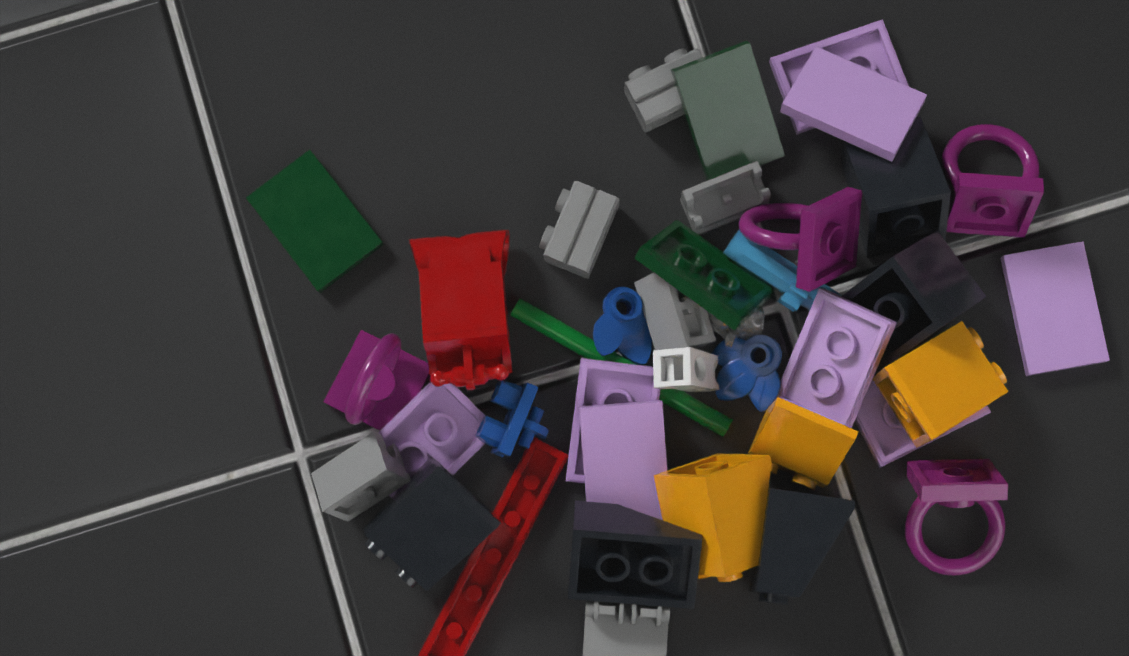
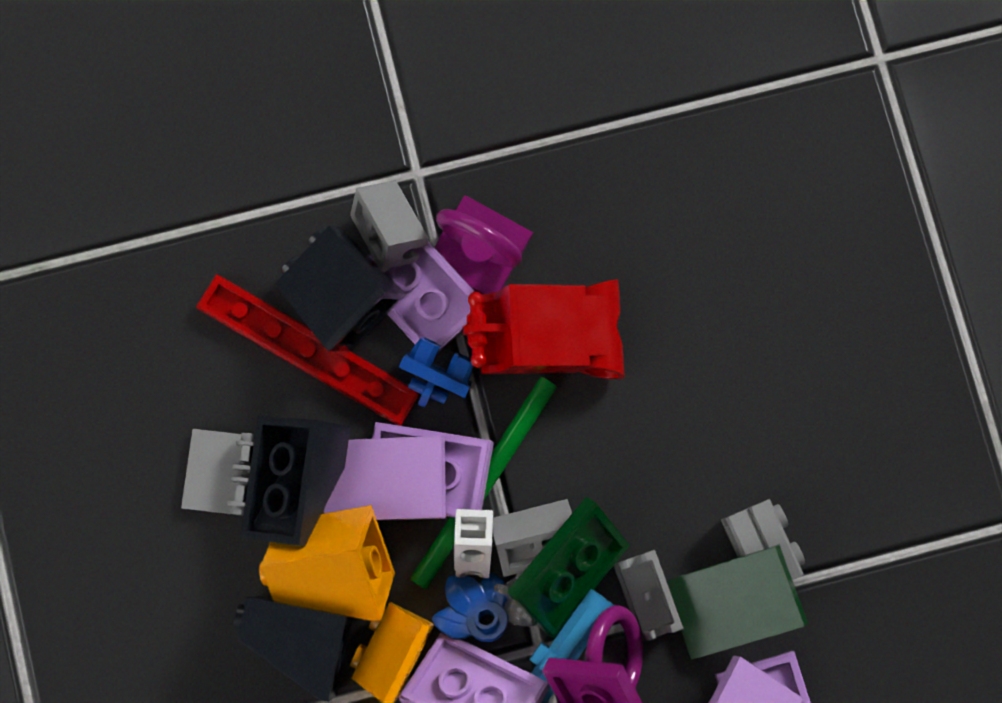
camera: 85 degrees right, 0 degrees up
(314, 221) = (642, 192): dark green tile -> none
(580, 229) = (623, 447): light grey brick -> none
(623, 331) = (518, 485): blue plate -> none

